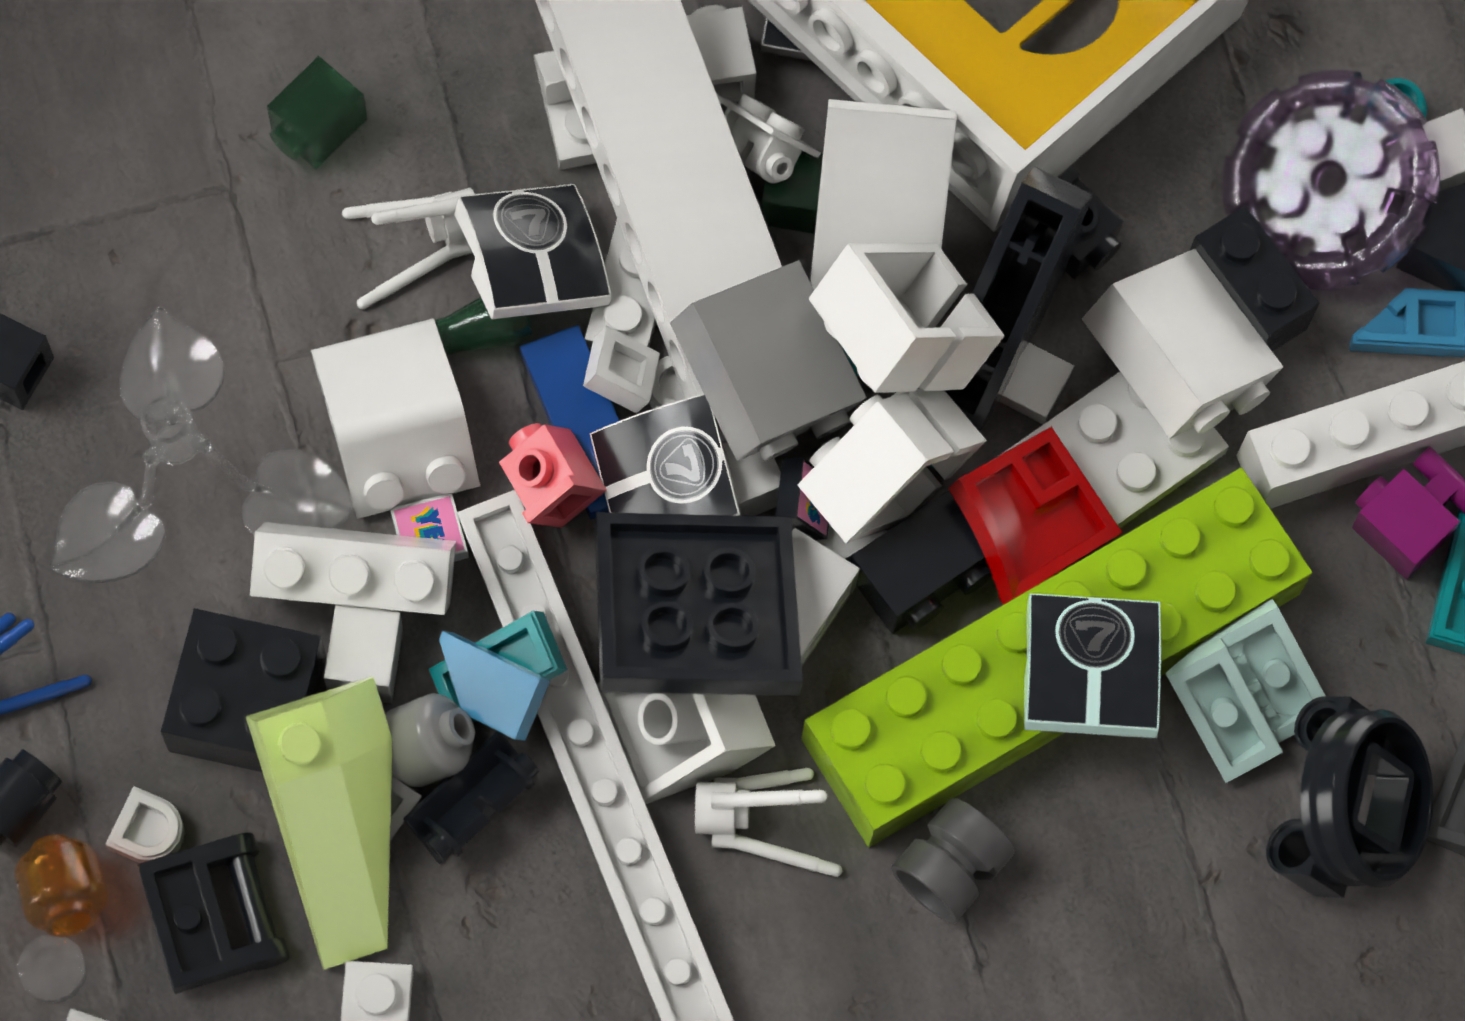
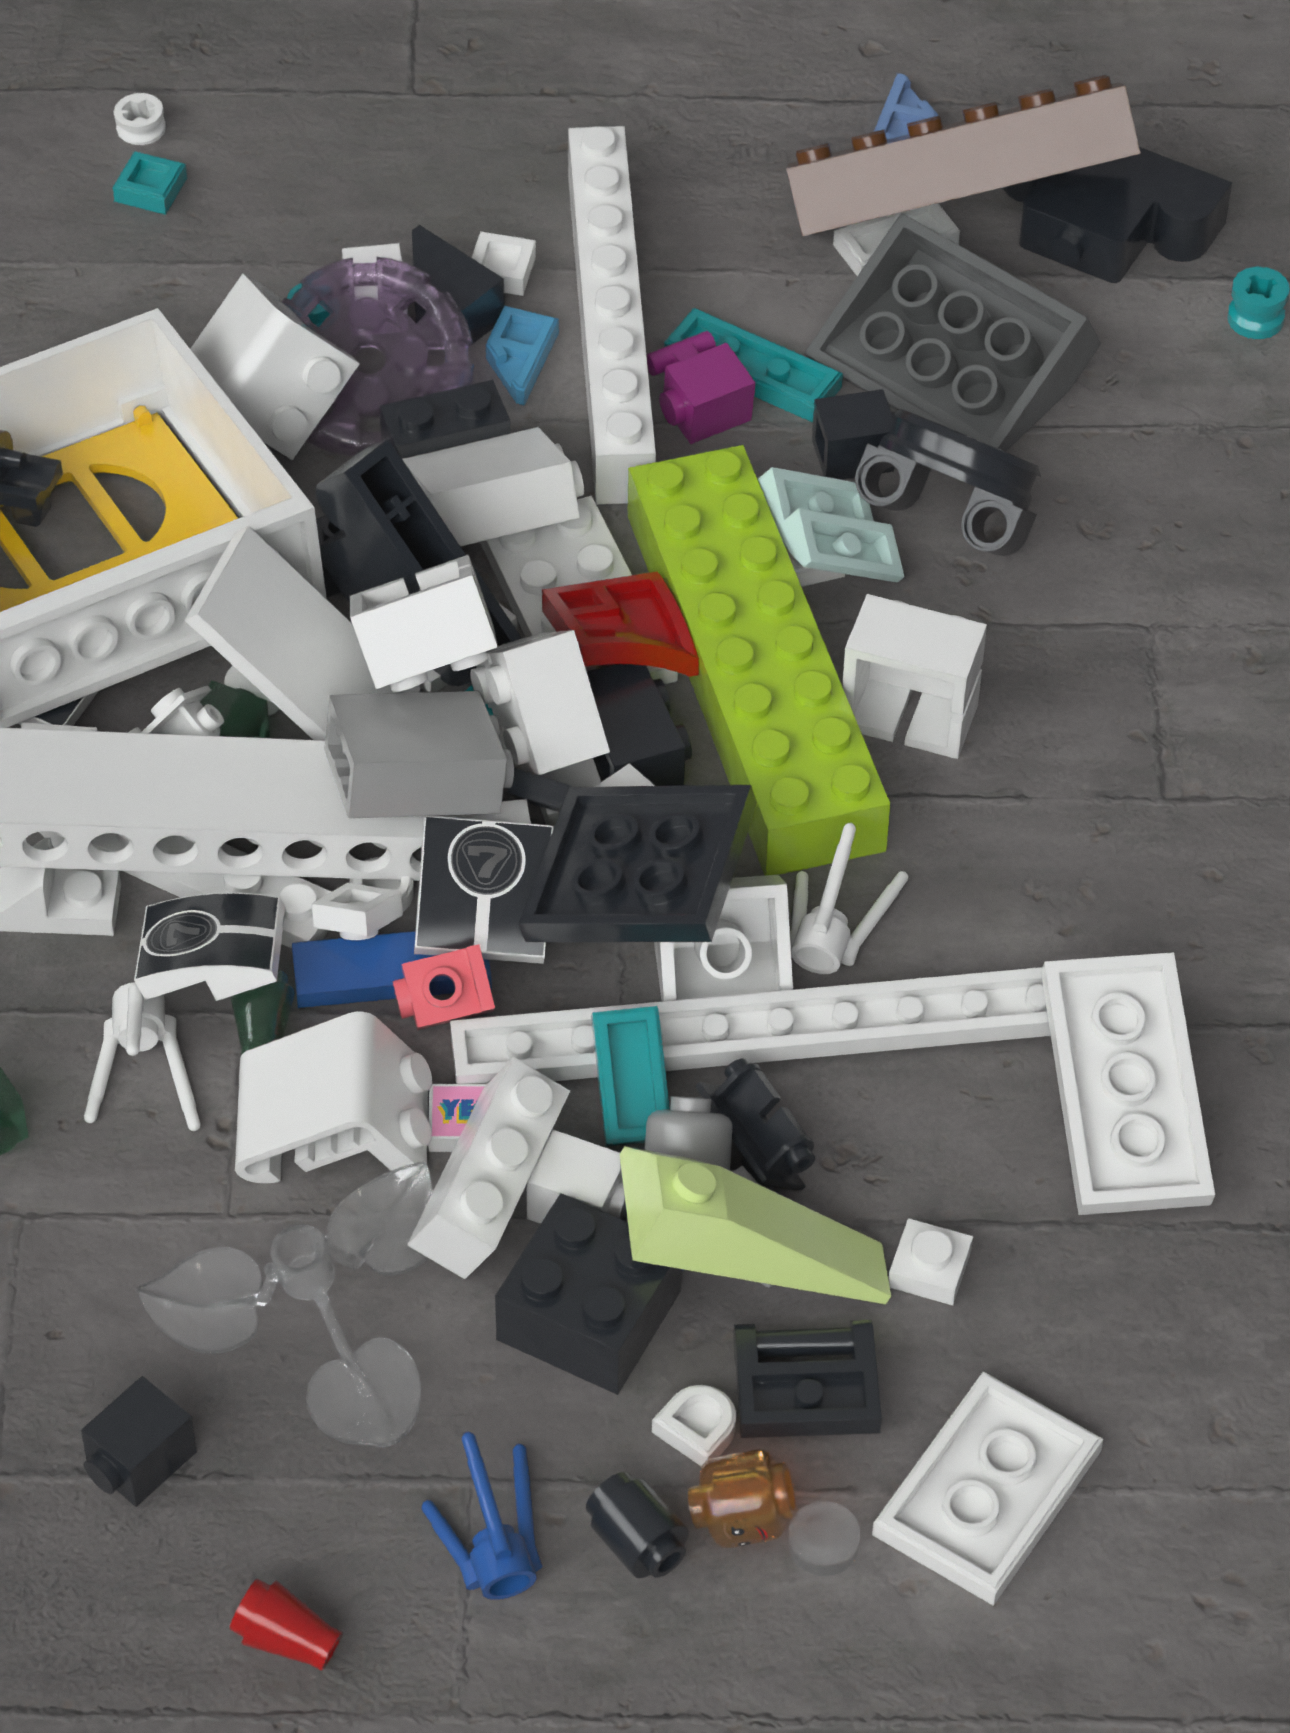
camera: 70 degrees left, 20 degrees down
(493, 686) = (656, 1068): dark azure tile -> none
(959, 853) = (930, 778): flat silver wheel -> none
(1063, 802) = (919, 650): none -> white piece
(1092, 665) = (792, 594): black slope -> none
(1252, 74) = (272, 365): none -> white piece
(1401, 681) = (845, 428): none -> black brick

